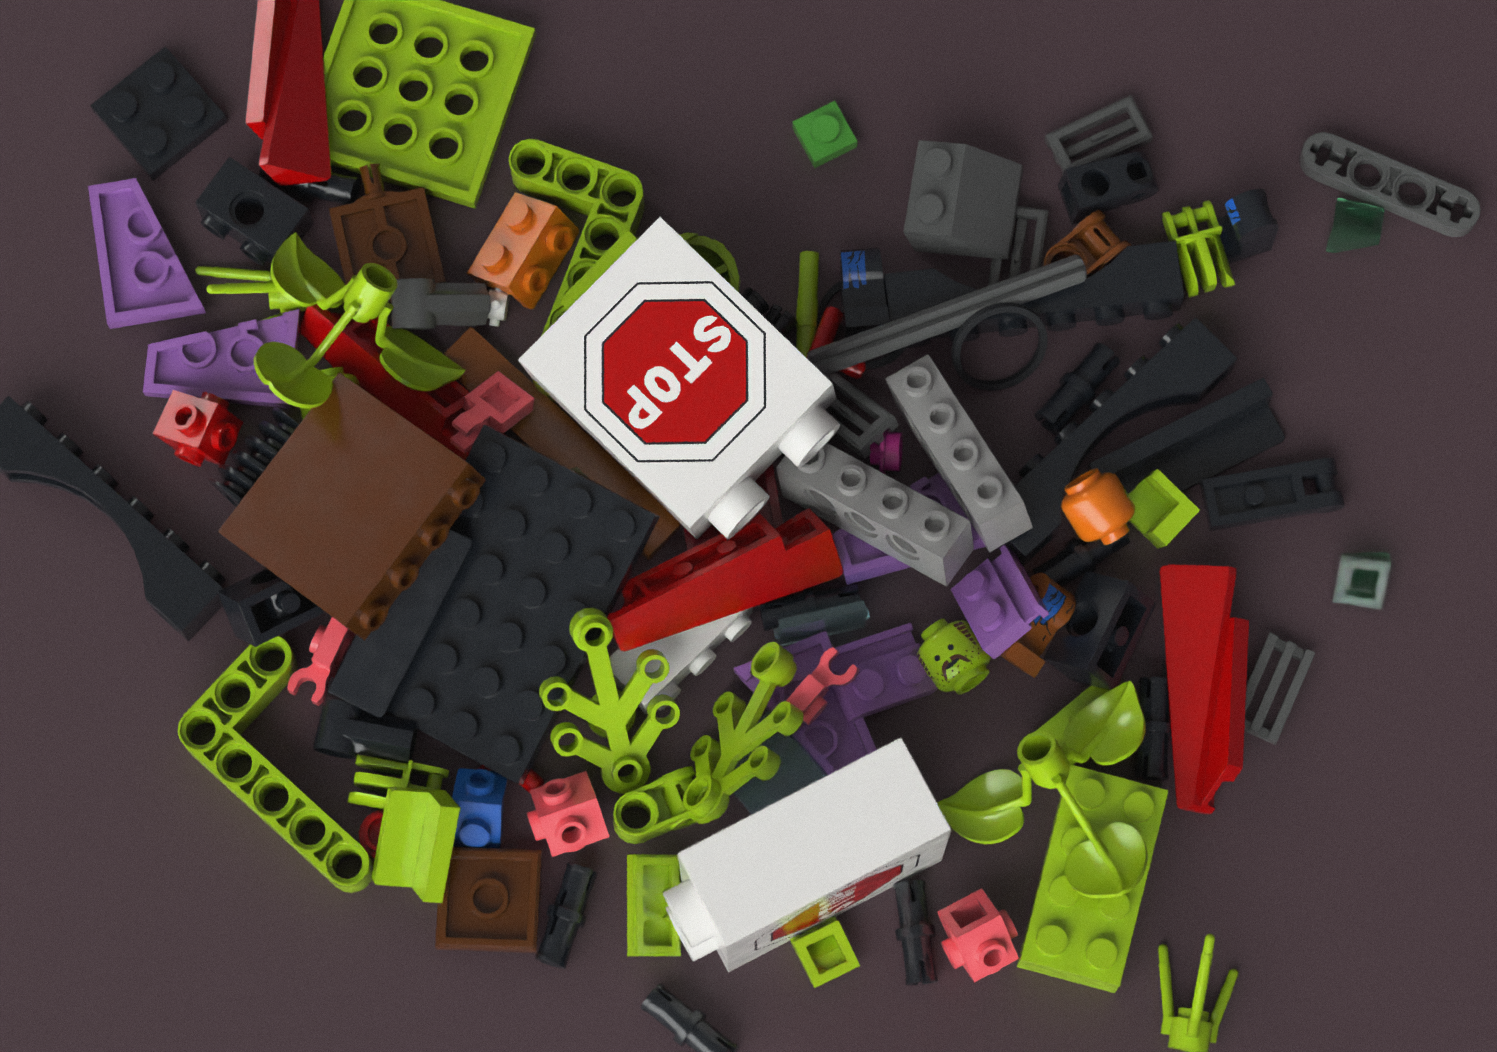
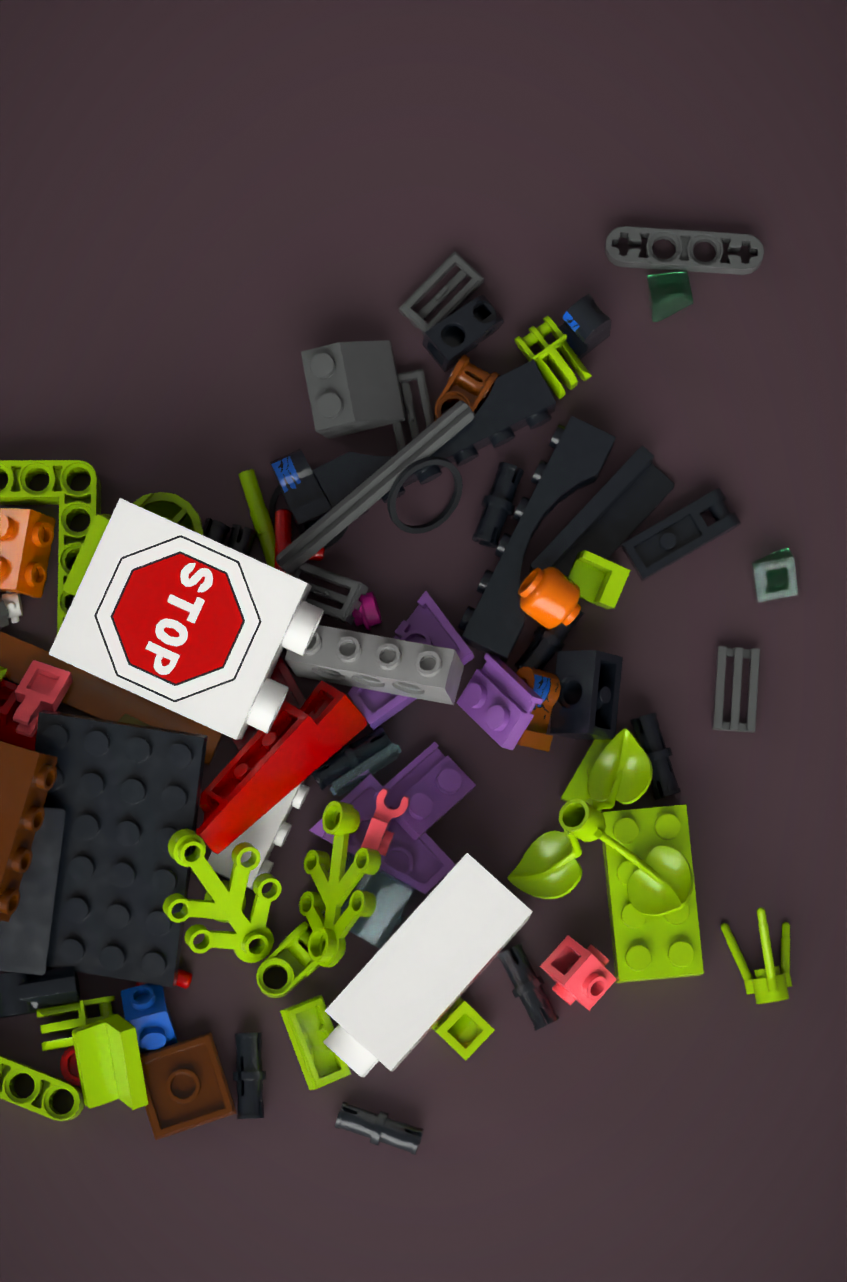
camera: 20 degrees left, 5 degrees up
(567, 814) = (220, 996): coral brick -> none
(824, 134) = (222, 370): bright green plate -> none
(953, 656) = (478, 757): lime head -> none
(959, 453) = (424, 594): light grey brick -> none
(1204, 679) = (681, 703): red wedge -> none

